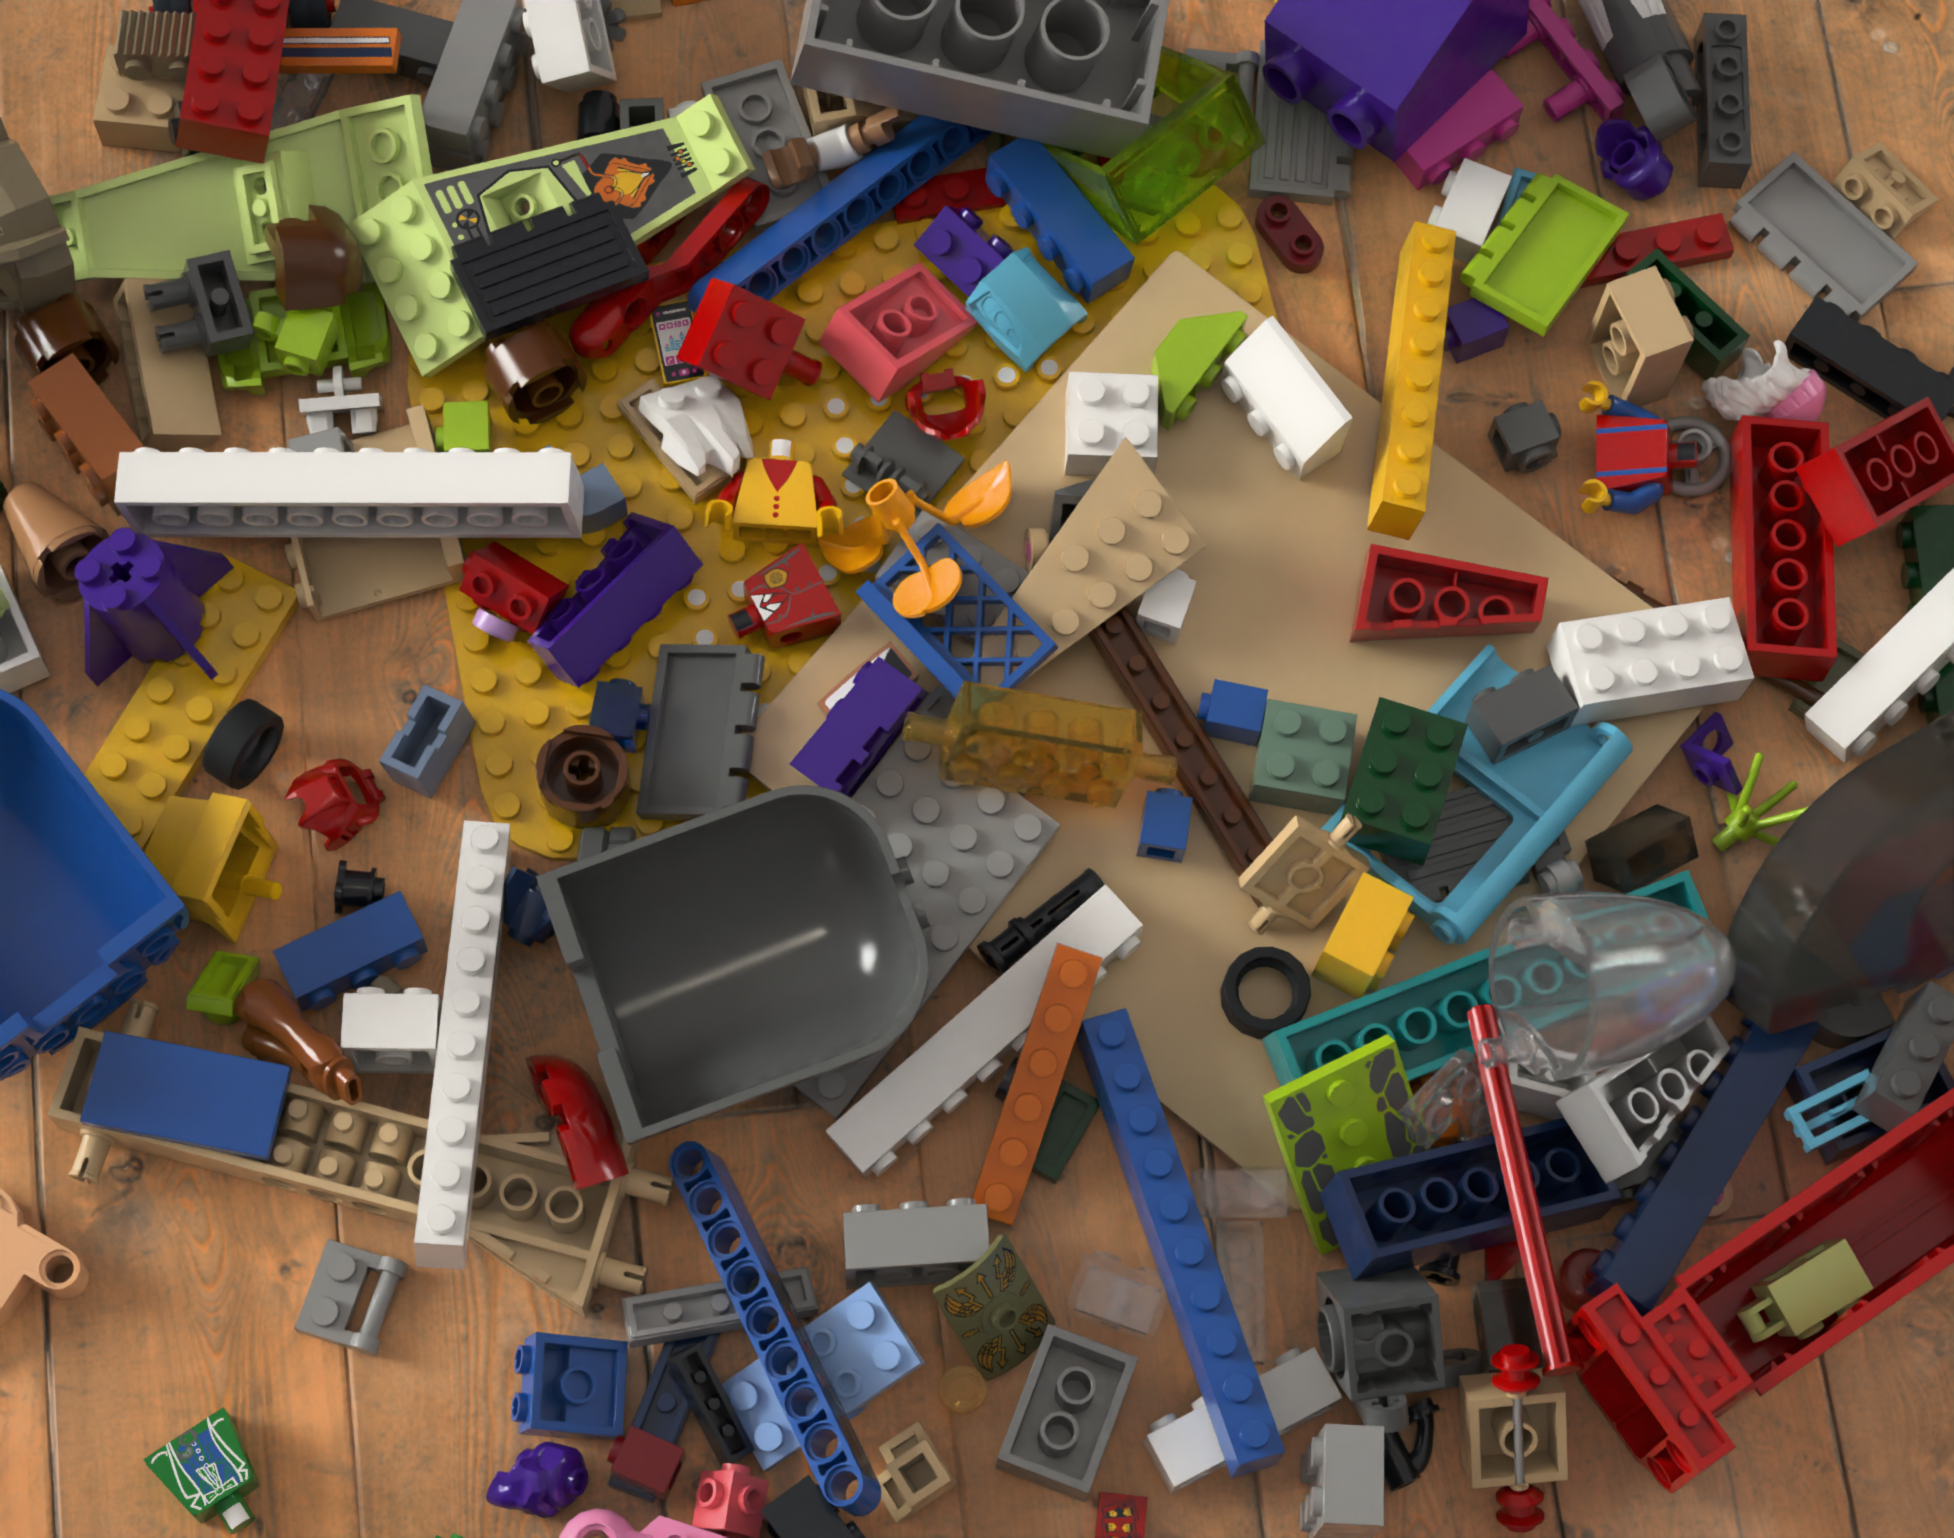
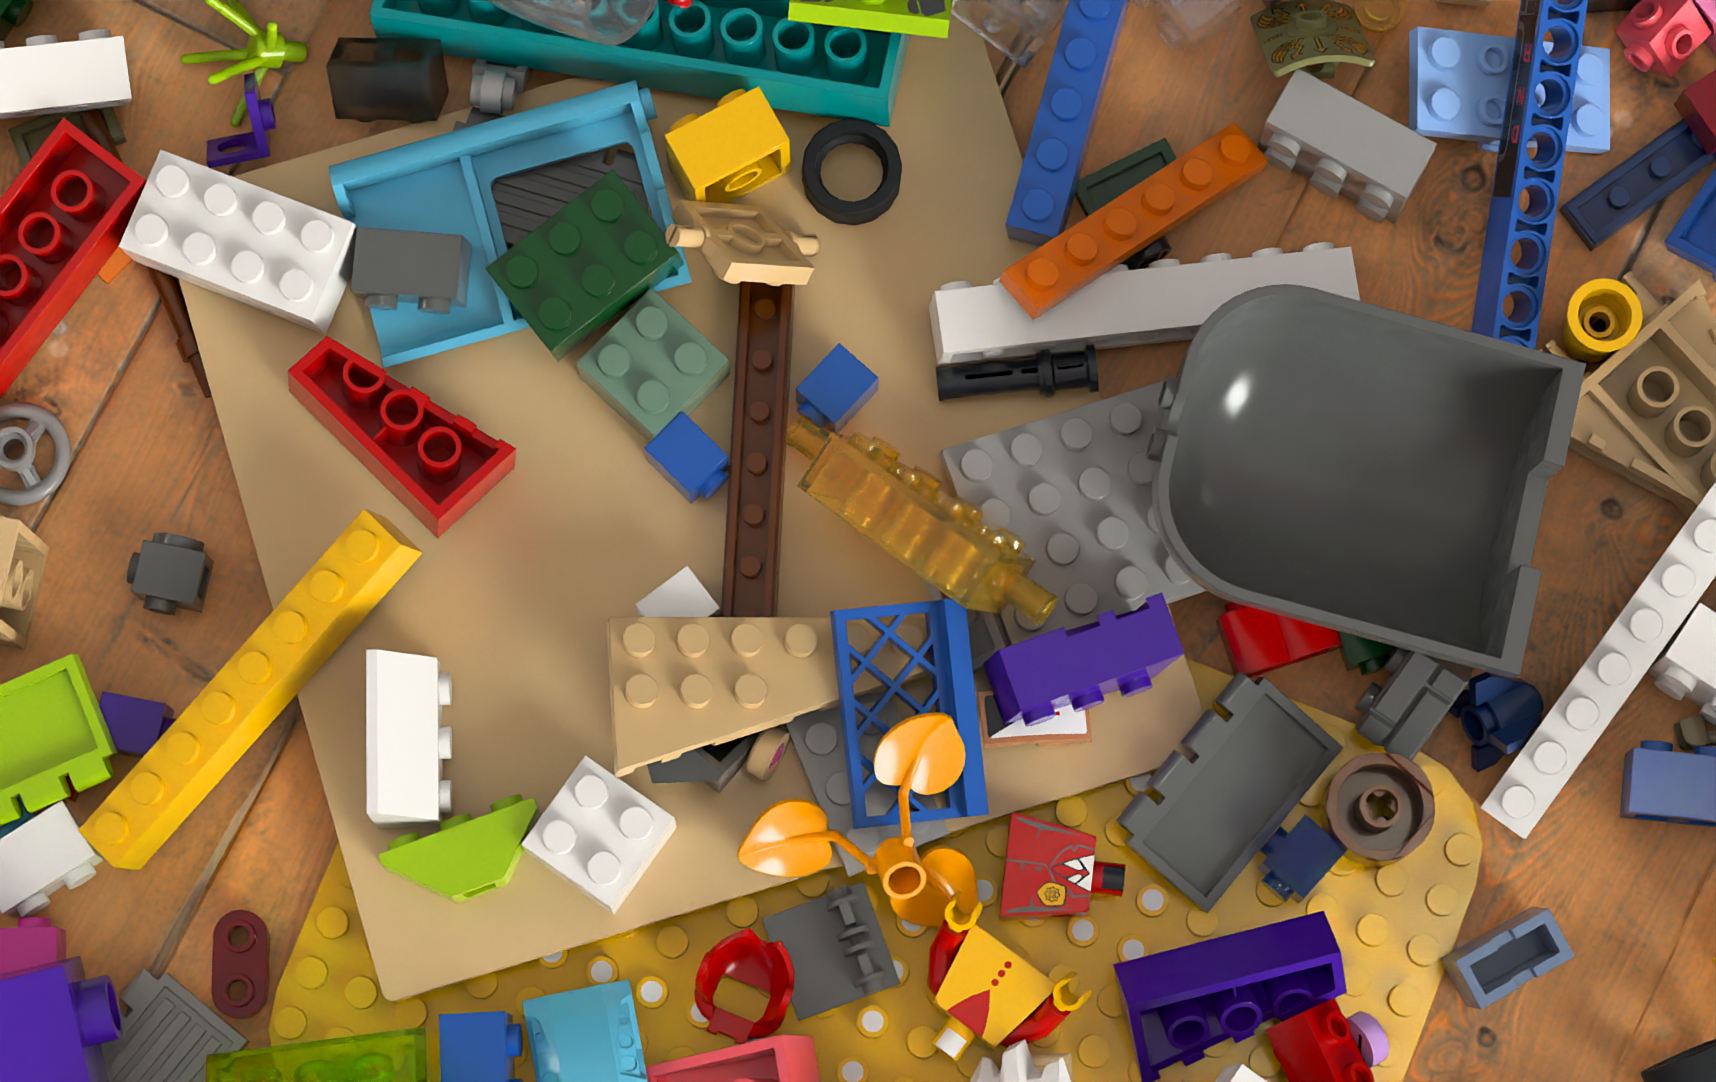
camera: 140 degrees left, 10 degrees up
(330, 803) = (1644, 963): red helmet -> none
(357, 888) = (1662, 851): black brick -> none
(586, 1127) = (1591, 478): red brick -> none
(631, 1210) = (1611, 308): none -> yellow plant
(702, 1309) = (1578, 223): light grey tile -> none
(710, 1404) = (1625, 131): black piece -> none
(1631, 455) = (85, 474): torso -> none

